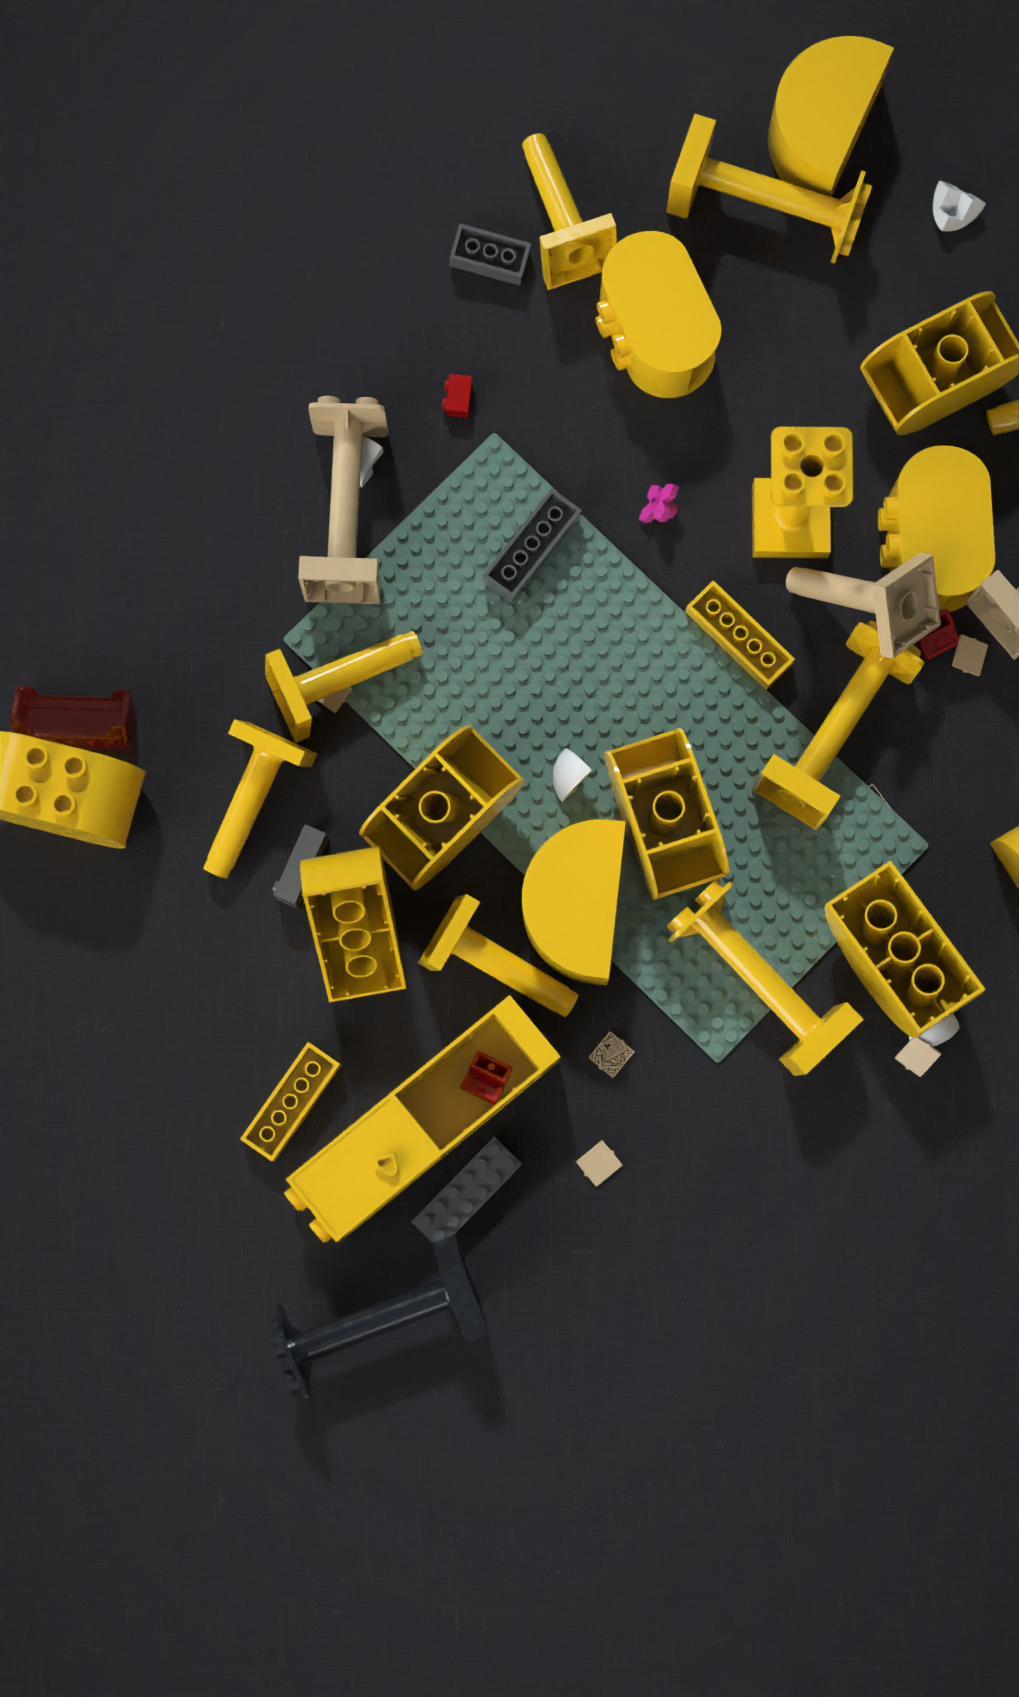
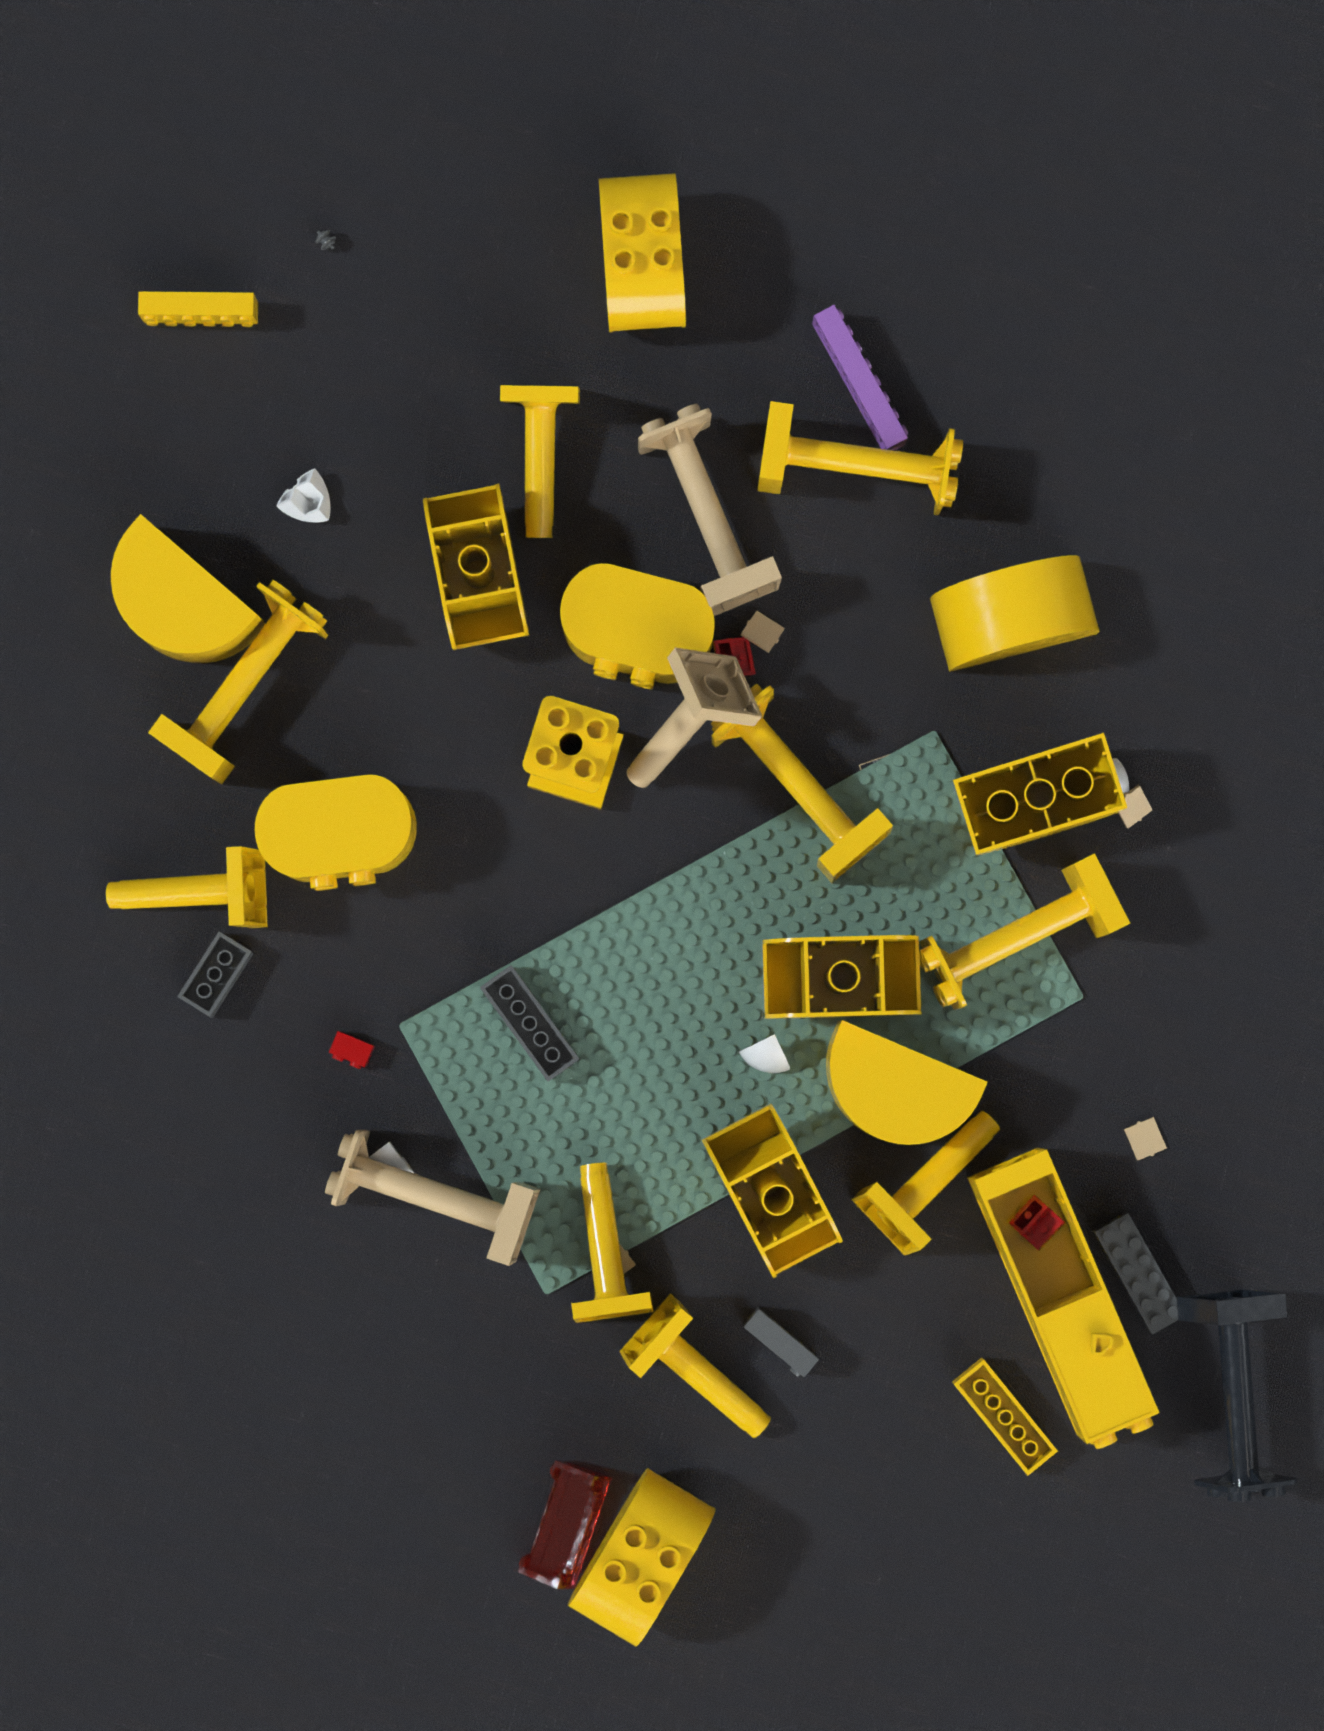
camera: 75 degrees left, 5 degrees up
(353, 923) = (857, 1308): yellow brick -> none
(611, 1054) = (1046, 1095): tan piece -> none
(661, 504) = (524, 883): dark pink plant -> none
(739, 635) = (678, 847): yellow brick -> none

